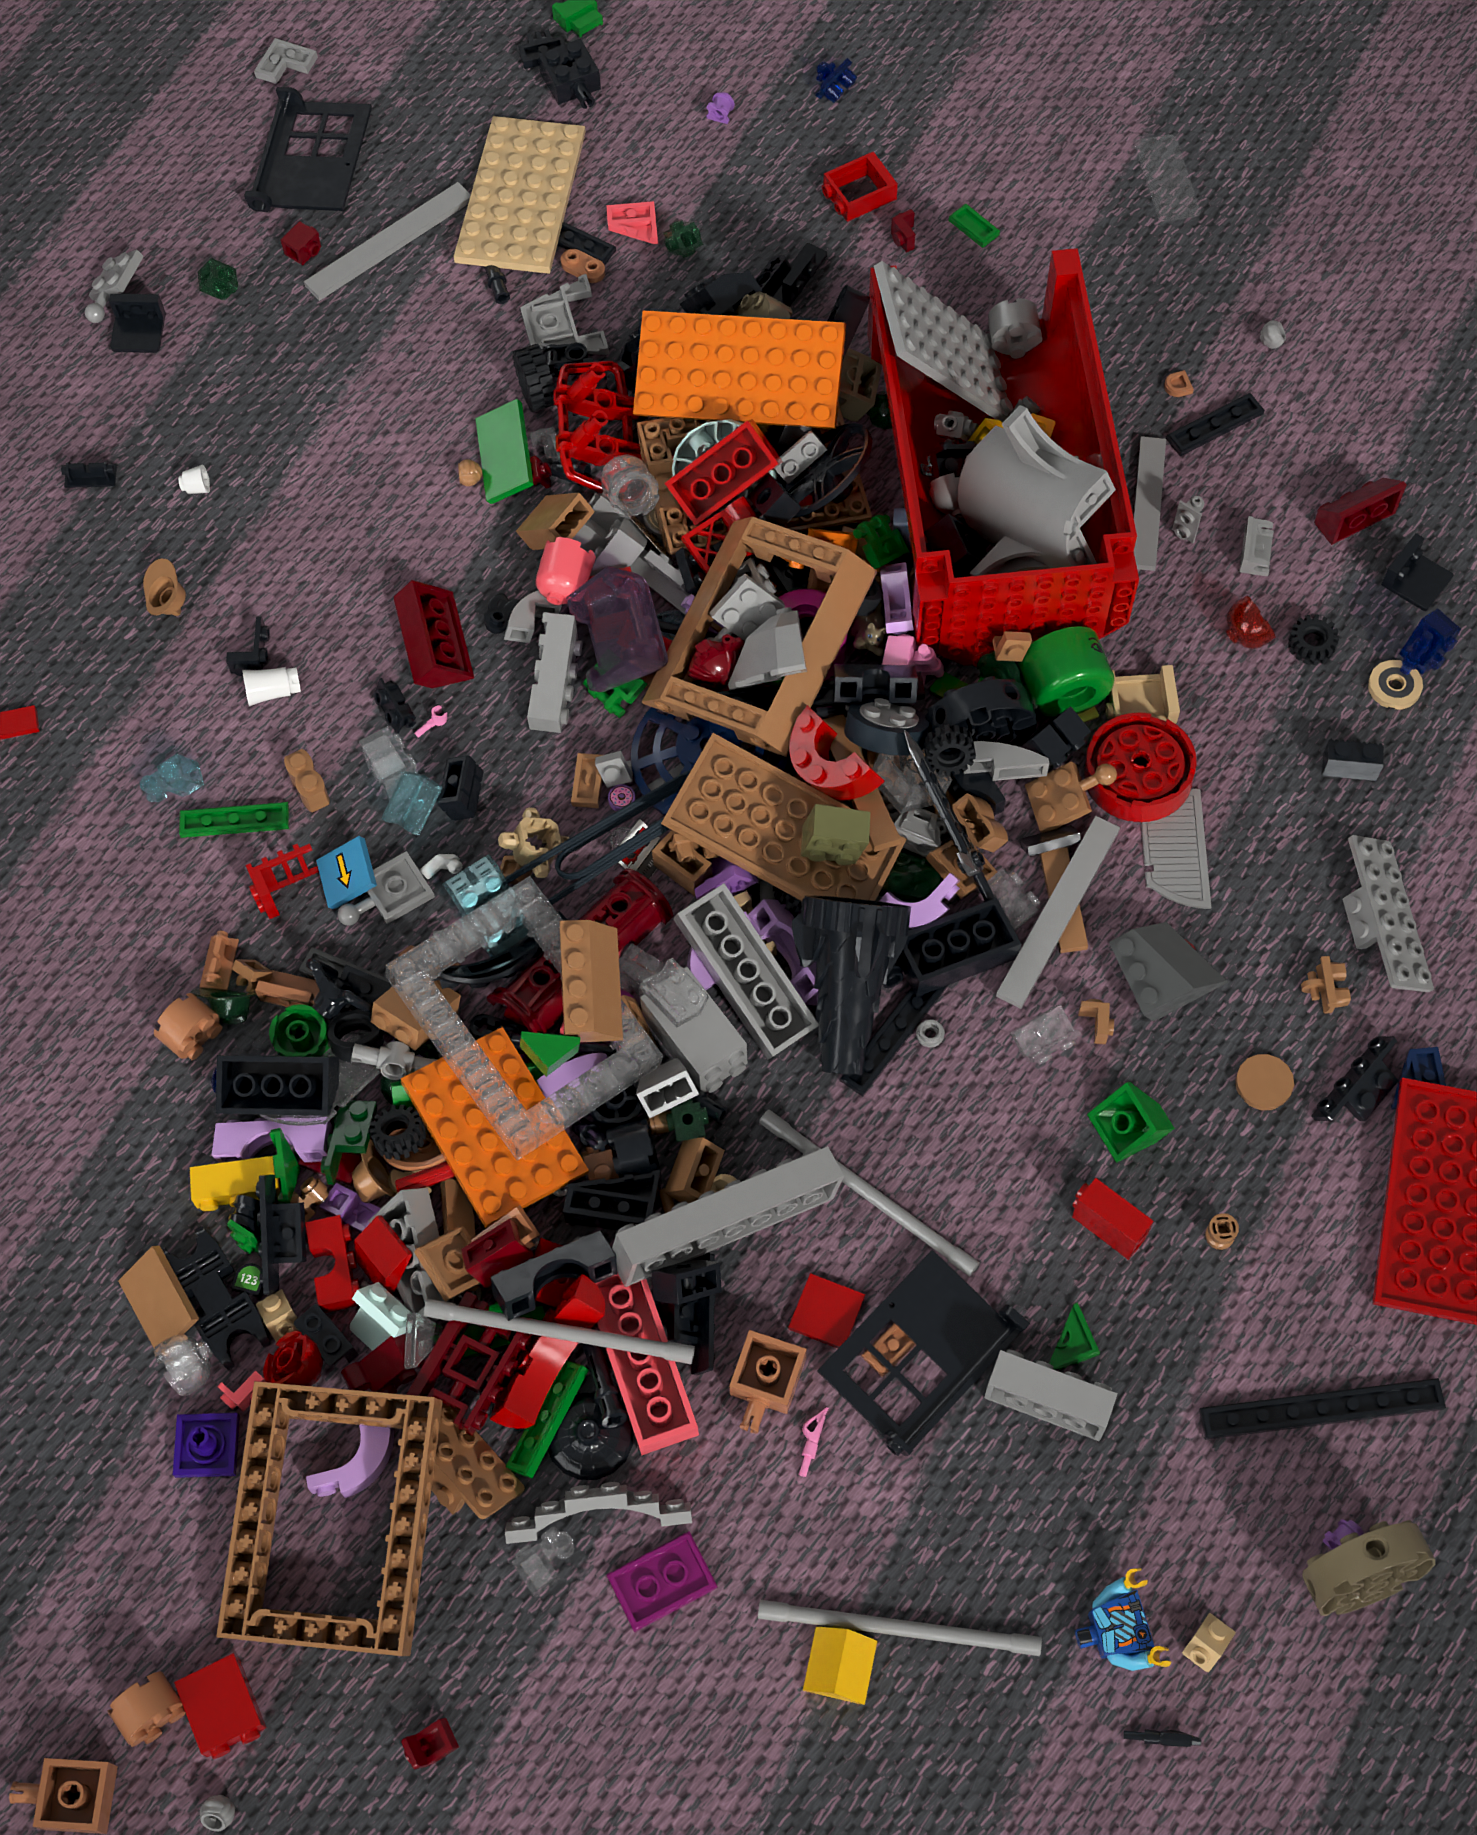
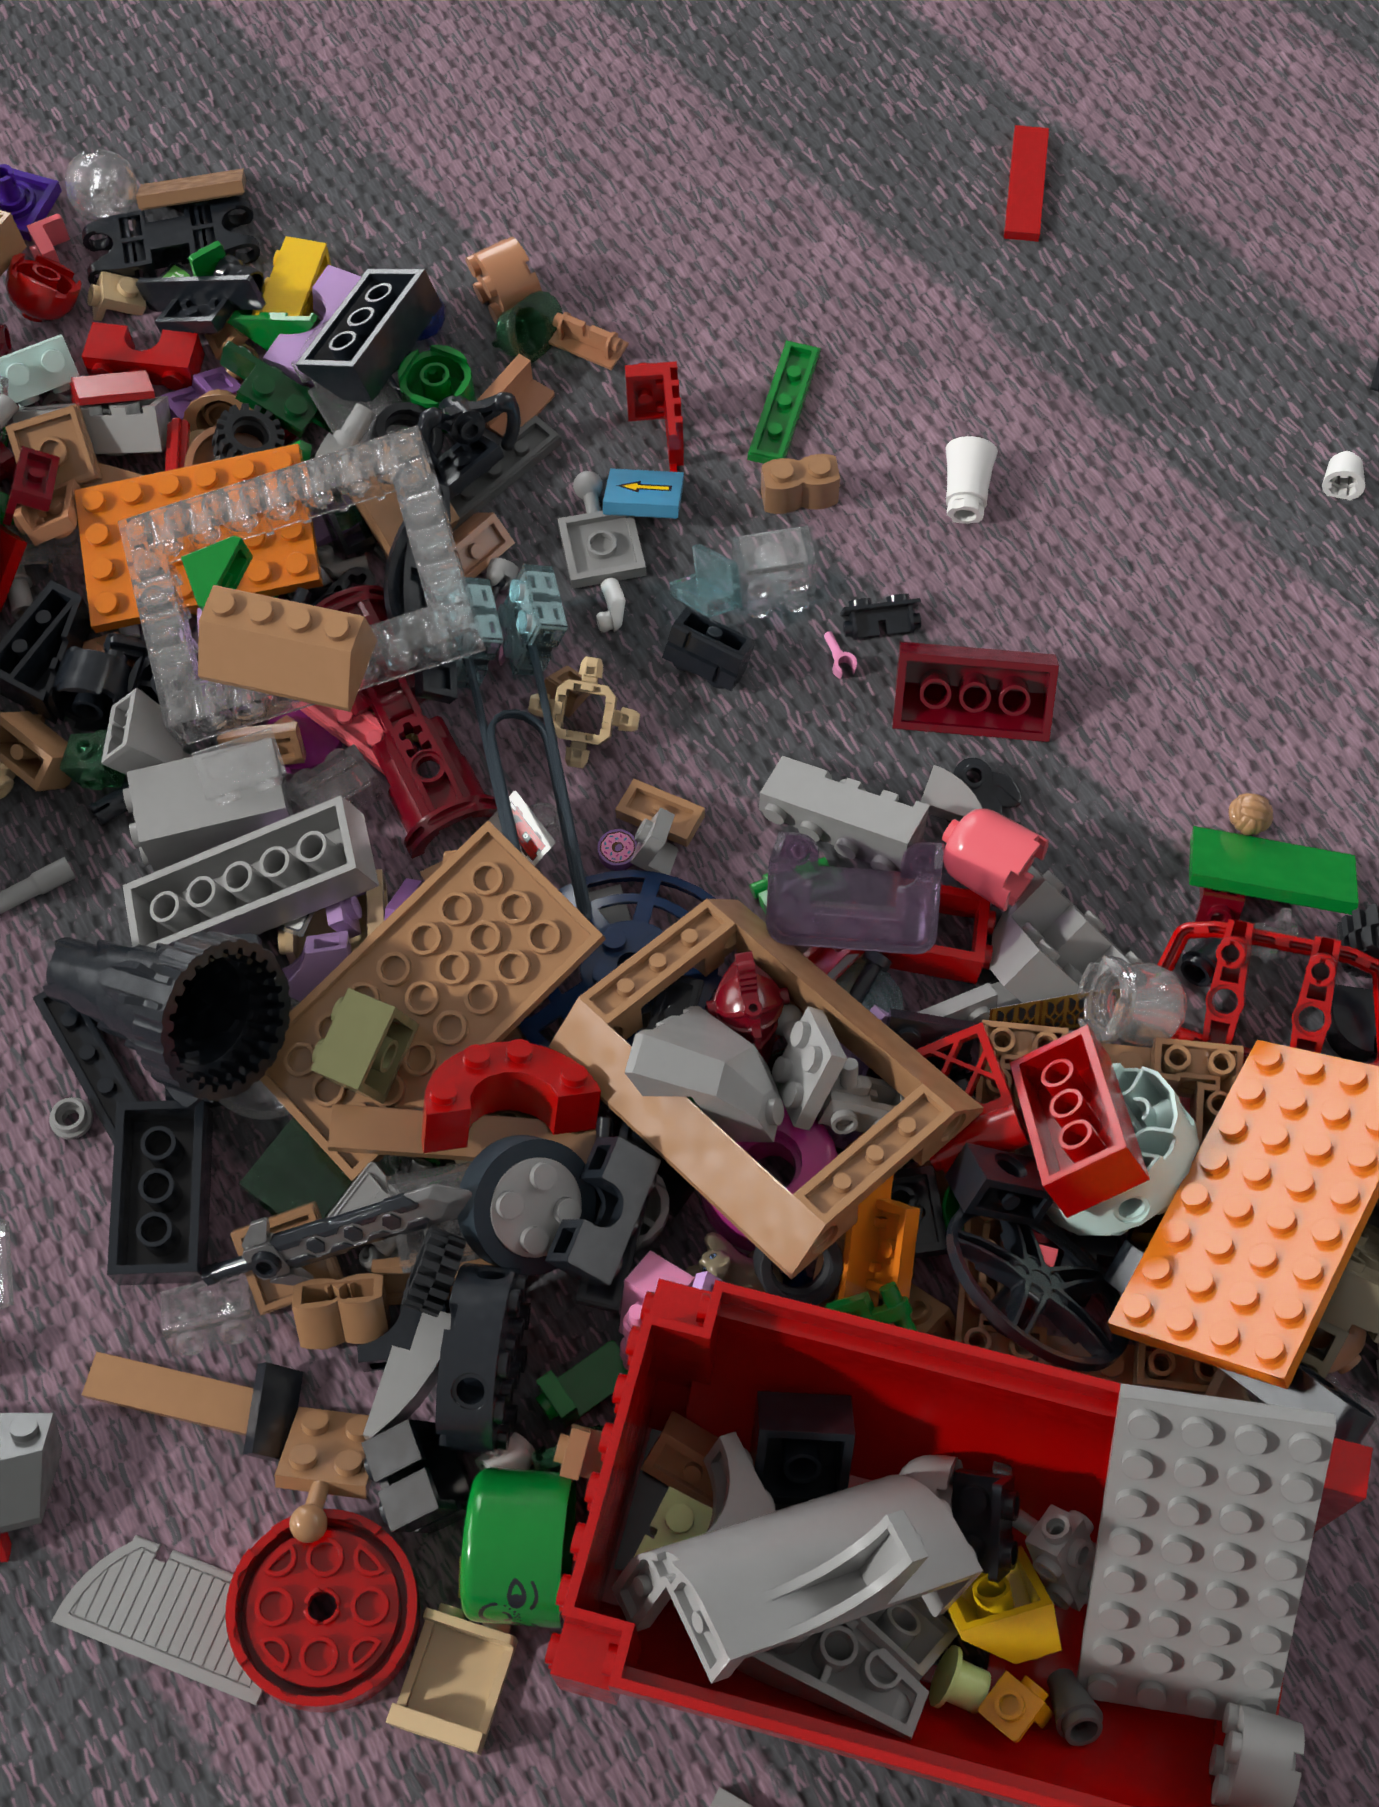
camera: 110 degrees right, 0 degrees up
(162, 589) = (1161, 398): medium nougat piece -> none
(174, 775) = (864, 345): clear light blue brick -> none
(251, 660) = (1029, 481): black bracket -> none
(251, 972) = (553, 365): medium nougat tile -> none
(326, 1335) = (68, 317): black bracket -> none
(555, 517) = (1104, 888): medium nougat brick -> none
(800, 456) = (1085, 1265): light grey bracket -> none
(931, 907) = (228, 1144): lavender arch -> none
(1058, 912) = (154, 1375): light grey tile -> none

